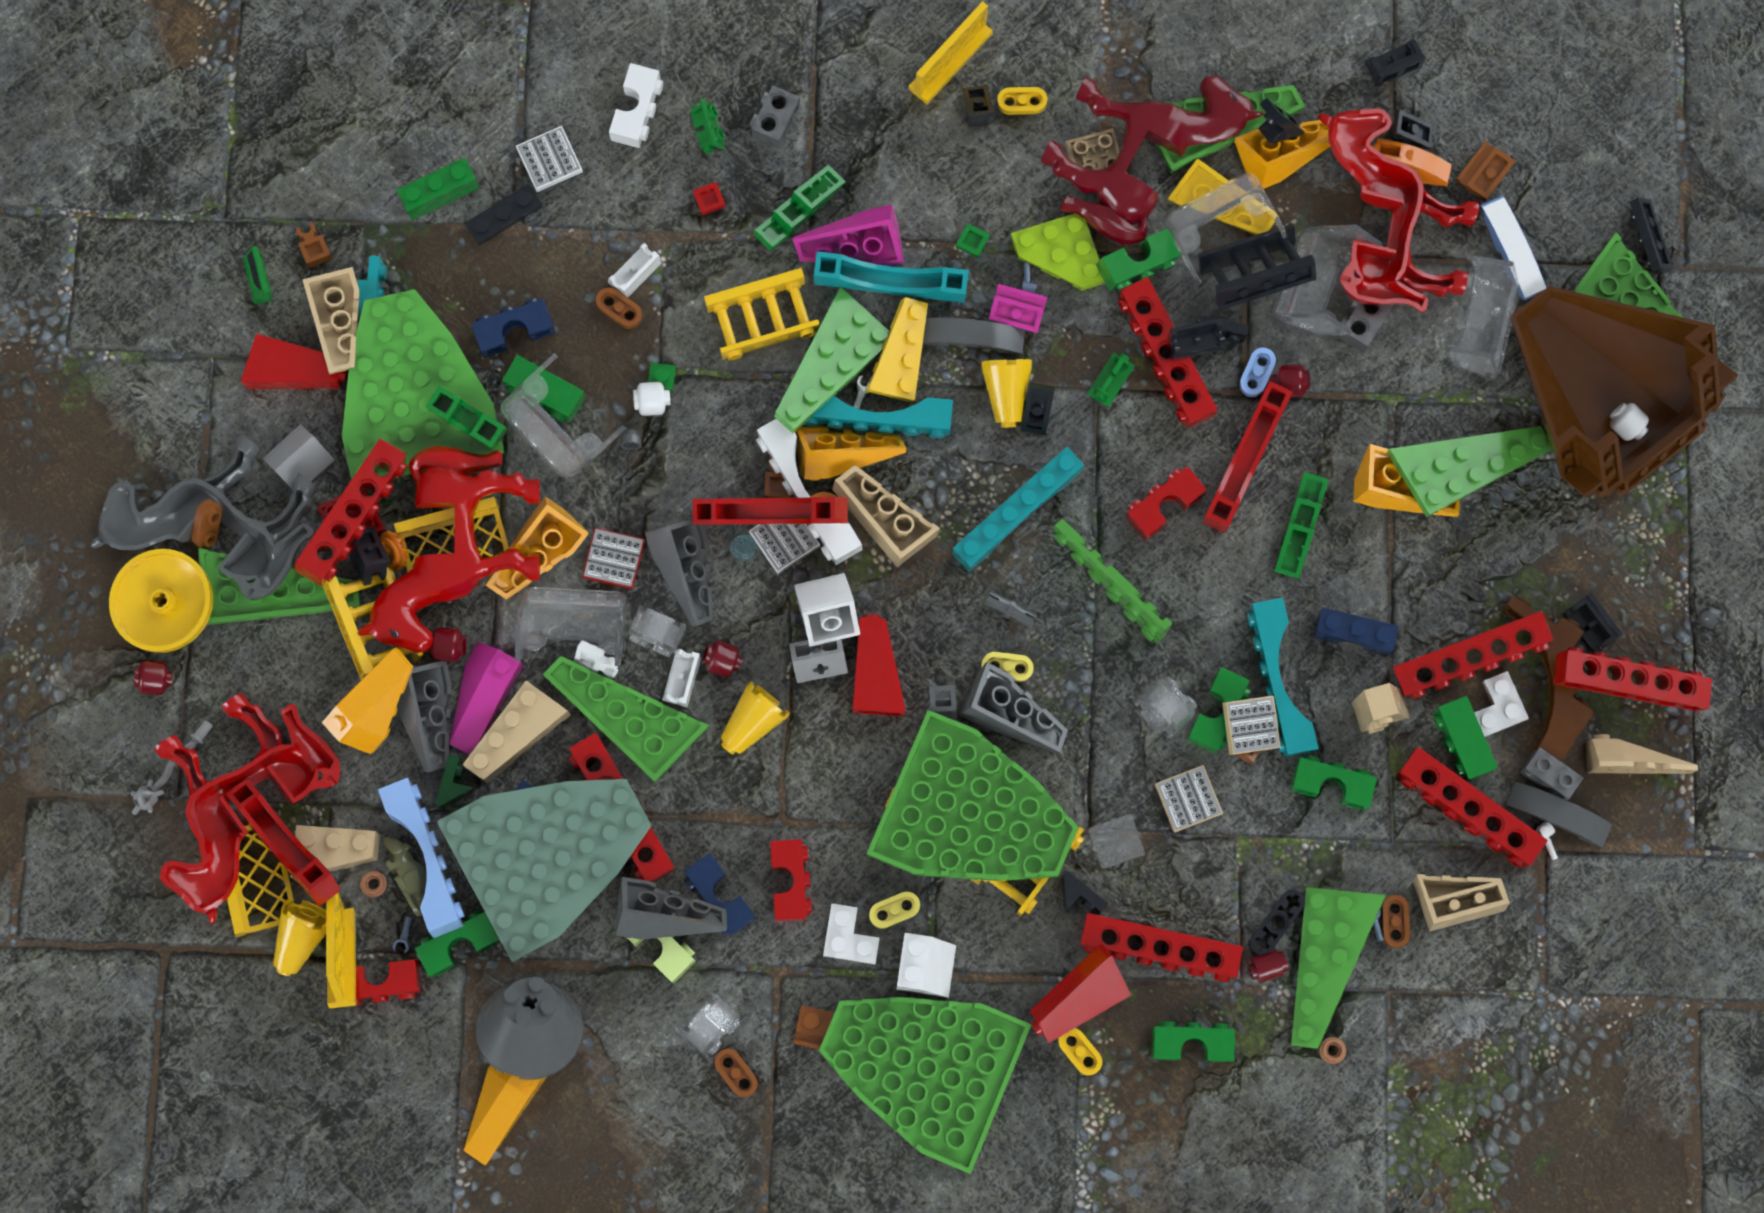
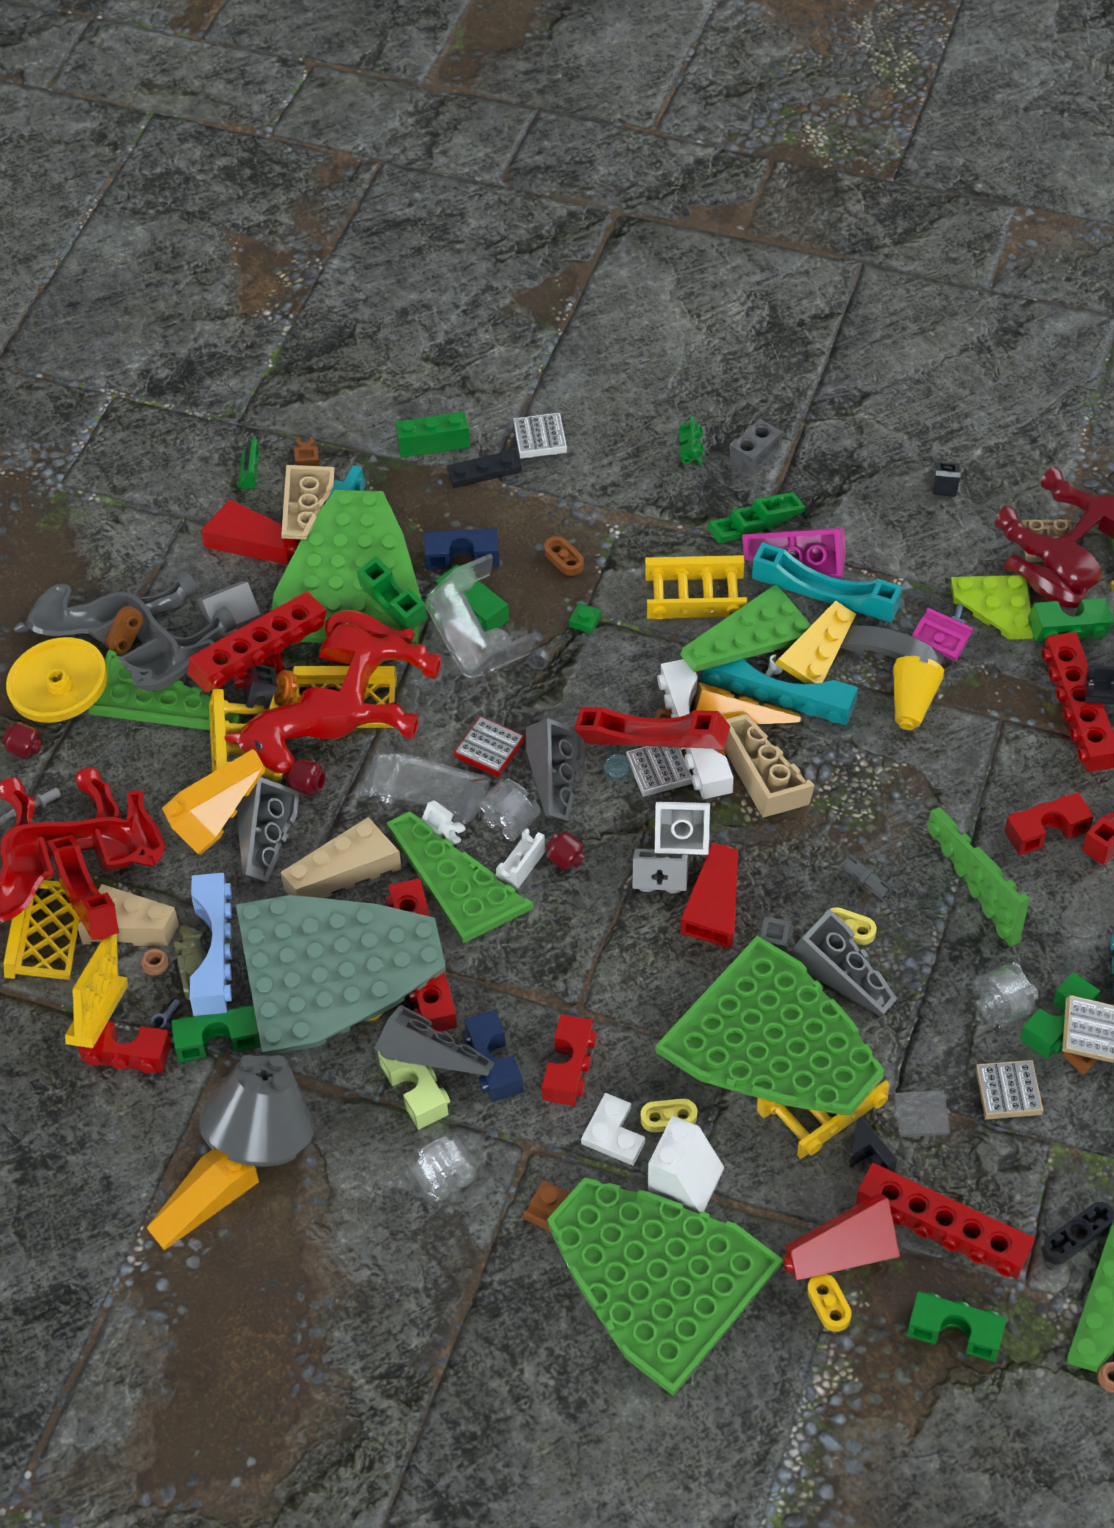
camera: 20 degrees right, 25 degrees down
(298, 935) = (57, 983): yellow cone -> none
(449, 790) = (267, 885): dark green slope -> none
(484, 687) = (327, 819): dark pink wedge -> none
(547, 533) = (438, 712): light orange wedge -> none
(631, 126) = (623, 426): white arch -> none
(635, 271) = (590, 532): white hinge -> none
(651, 398) = (569, 627): white head -> none
(709, 198) = (674, 493): red plate -> none
(736, 1073) = (453, 1228): dark orange plate -> none
(752, 719) = (577, 906): yellow cone -> none
(952, 55) = (930, 439): yellow fence -> none
(972, 241) = (912, 575): green plate -> none
(1017, 508) = (938, 775): teal arch -> none
(1021, 97) = (989, 481): yellow plate -> none
(1037, 408) = (940, 715): black slope -> none
(1111, 379) = (1020, 711): green hinge -> none
(1268, 966) = (1059, 1270): dark red brick -> none

